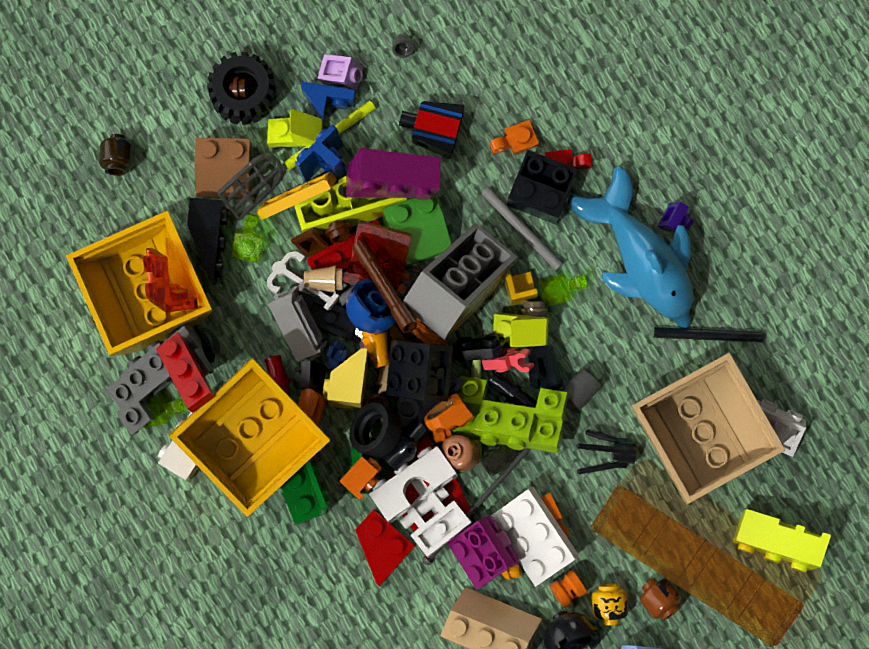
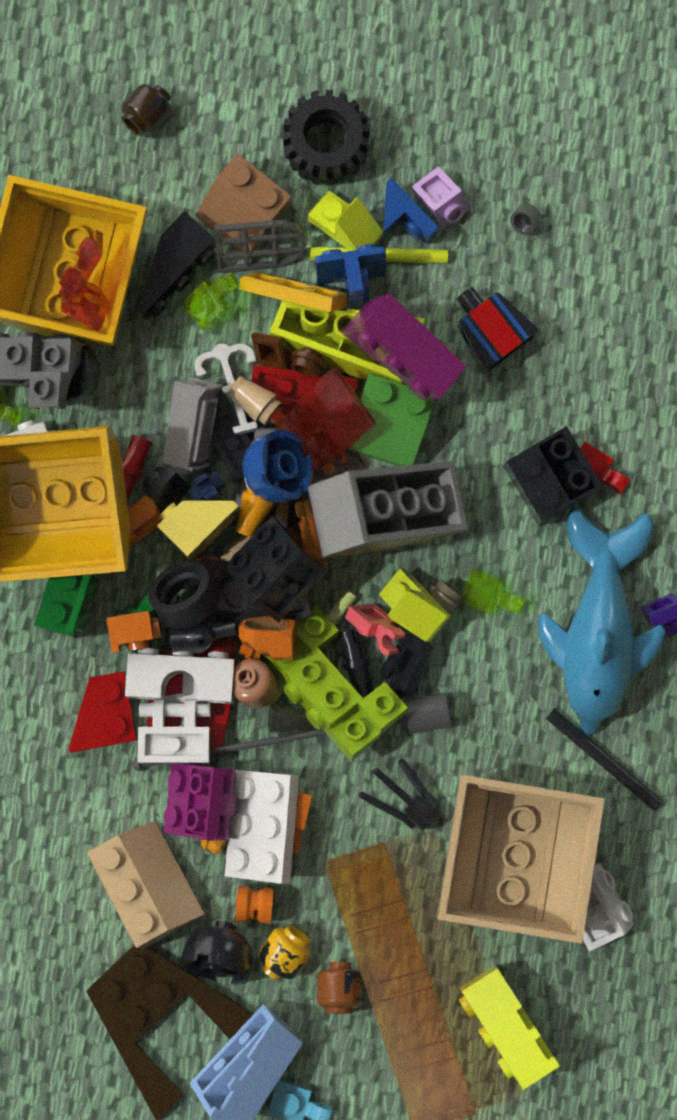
camera: 35 degrees right, 5 degrees up
(185, 372) = (30, 388): red plate -> none
(239, 88) = (322, 136): reddish brown plate -> none
(398, 309) = (298, 490): reddish brown piece -> none
(480, 348) = (357, 592): black plate -> none
(518, 138) = (569, 406): orange plate -> none
(520, 288) = (449, 562): yellow panel -> none
(522, 228) = (499, 502): light grey bar -> none

